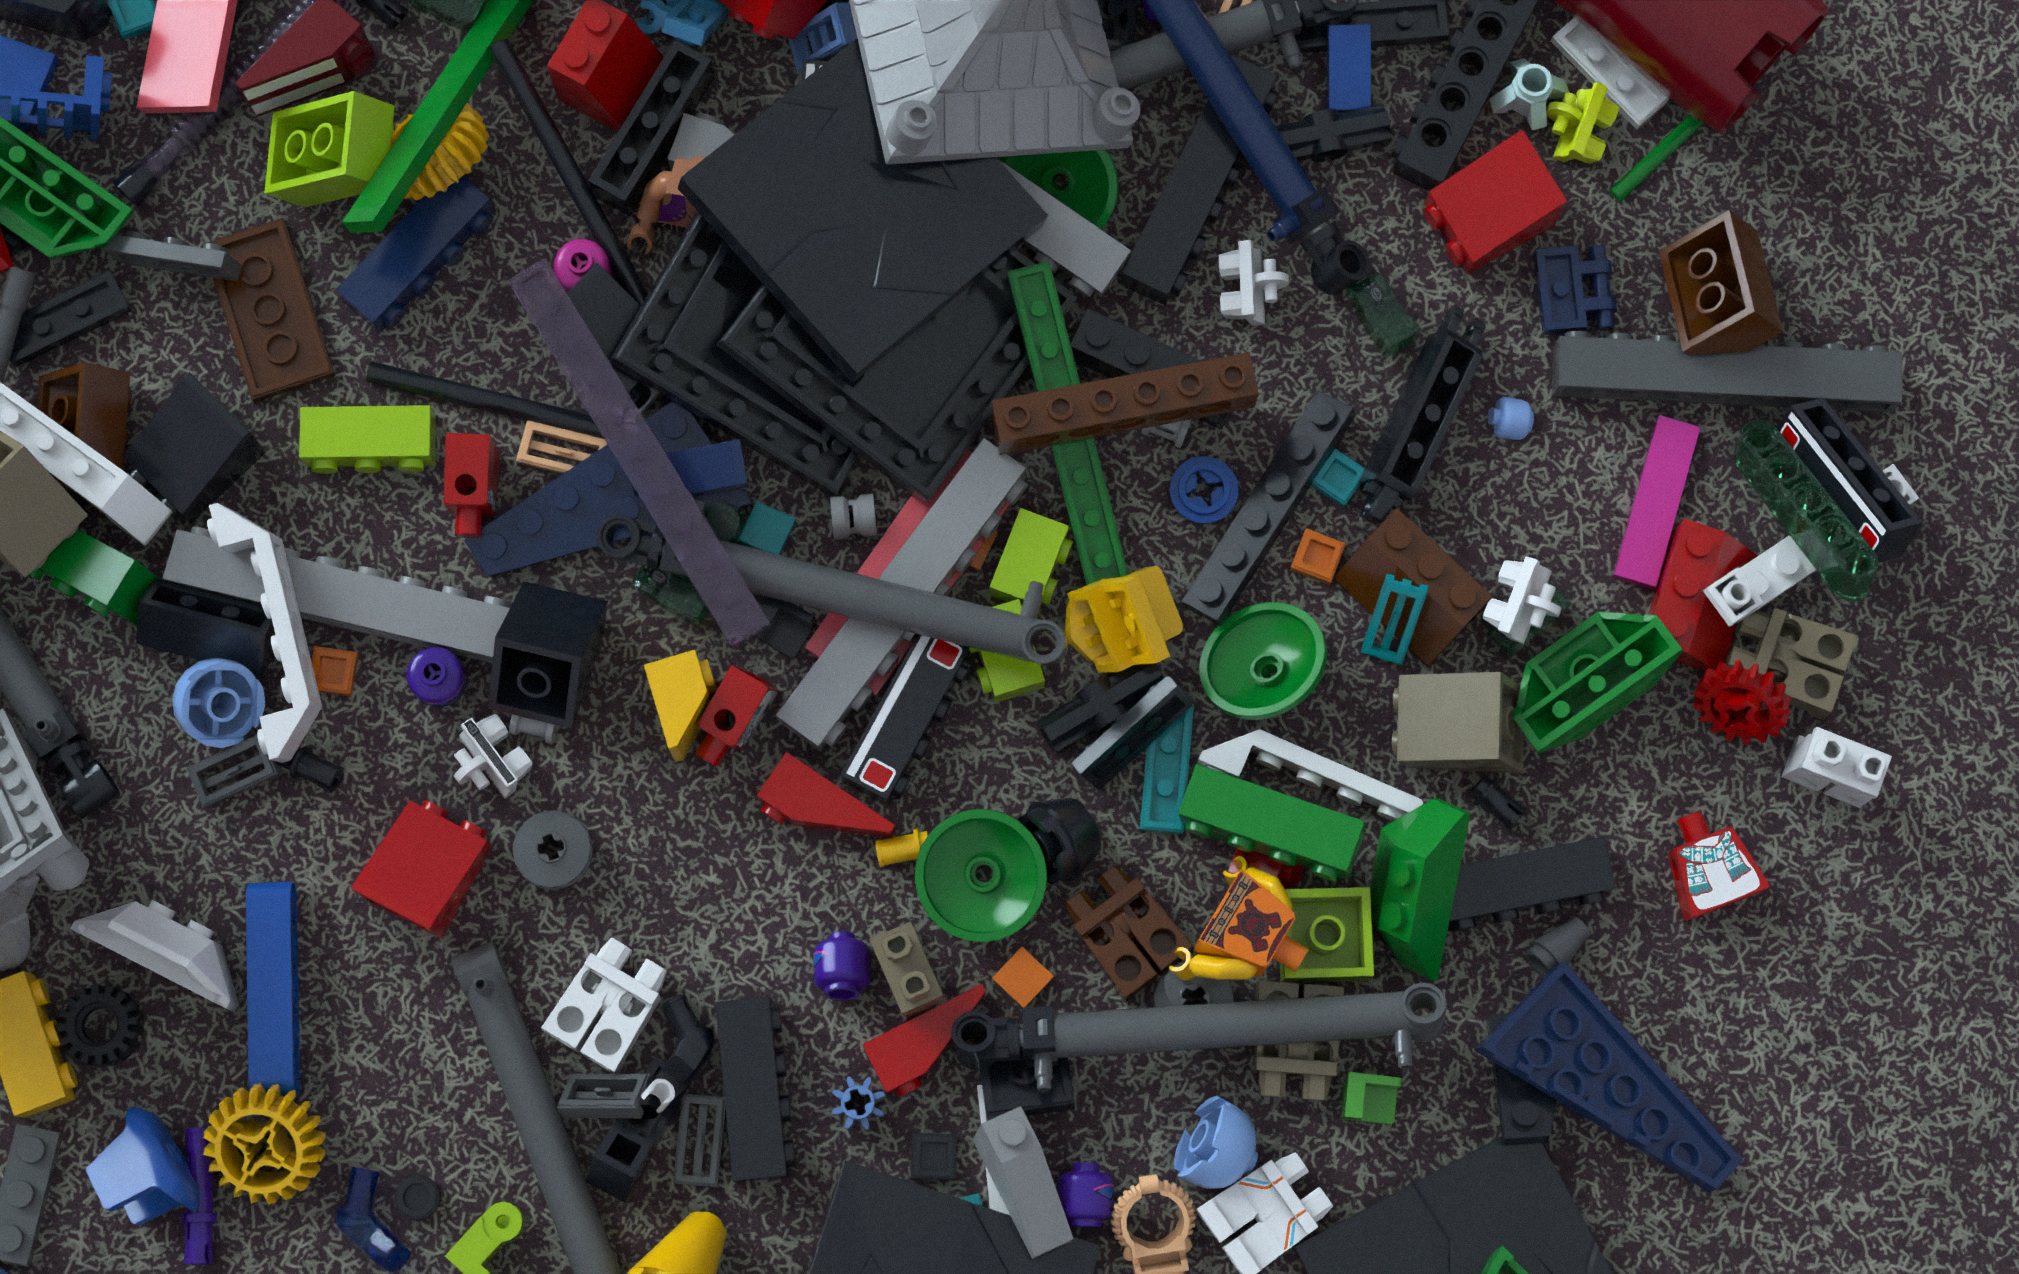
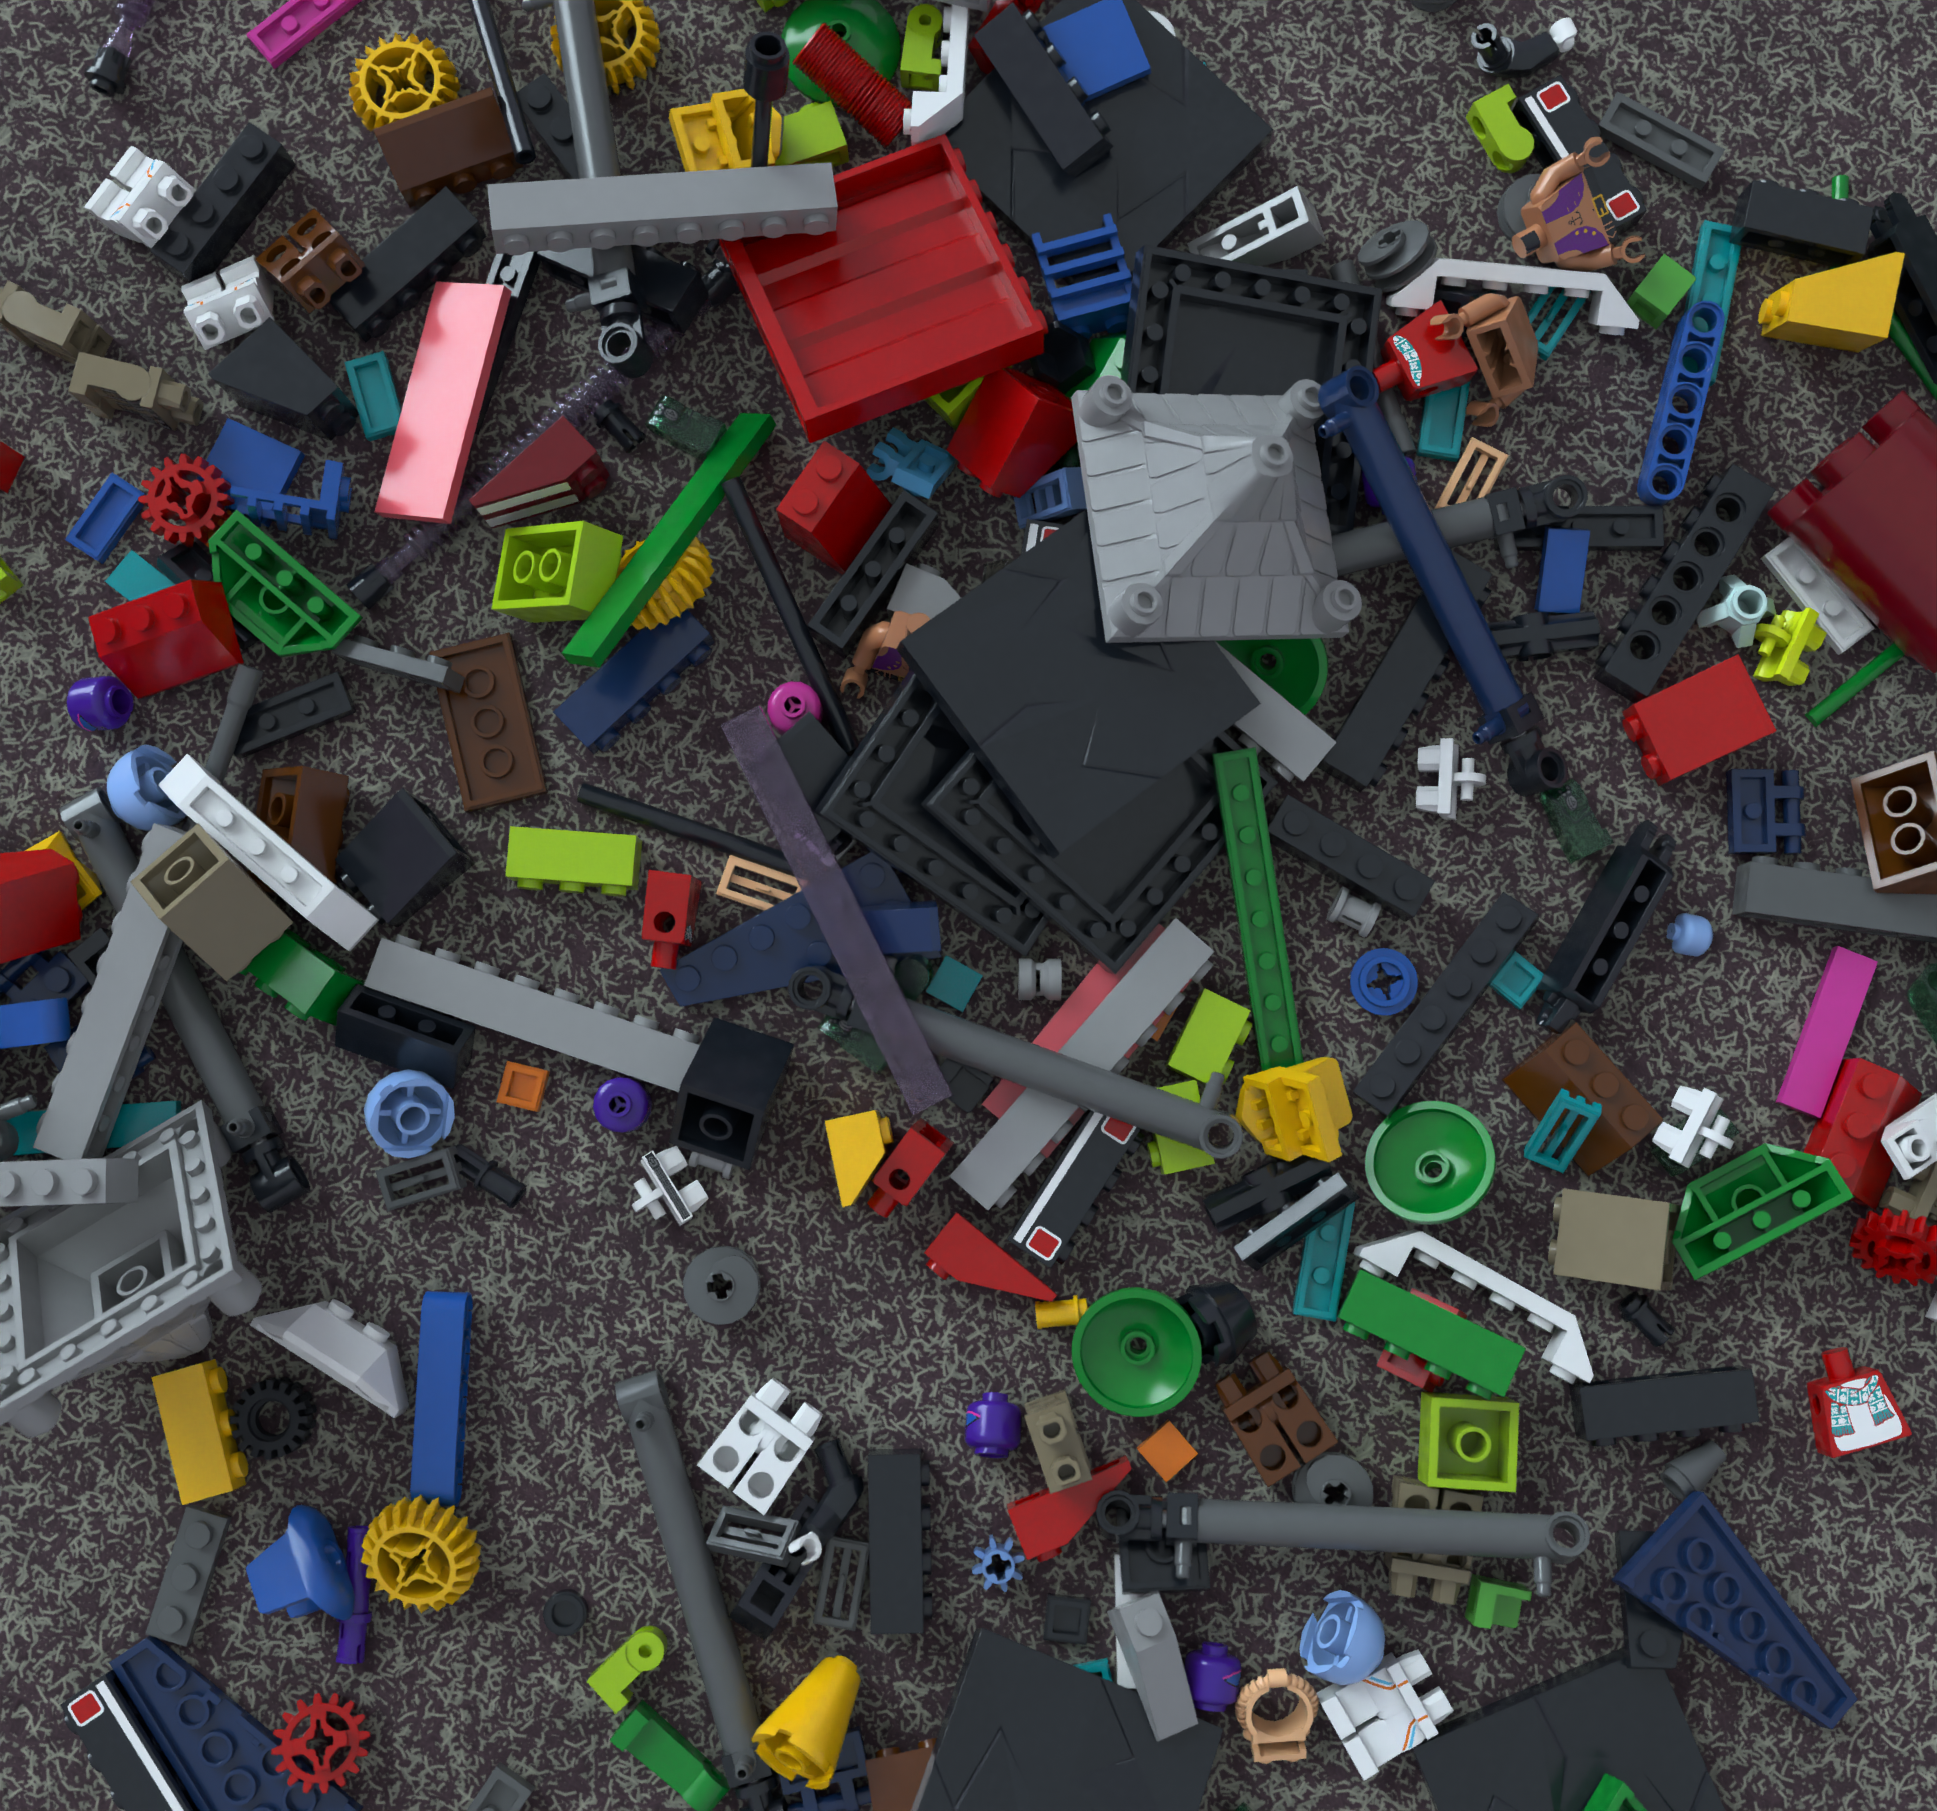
camera: 10 degrees right, 5 degrees up
(284, 729) = (481, 1066): white slope -> none
(363, 1228) = (513, 1642): clear blue arm -> none
(424, 867) = (594, 1295): red slope -> none
(1124, 403) = (1320, 898): reddish brown brick -> none
(1244, 930) = (1395, 1439): torso -> none
(1317, 556) = (1489, 1057): orange tile -> none
(1417, 883) = (1566, 1398): green wedge -> none

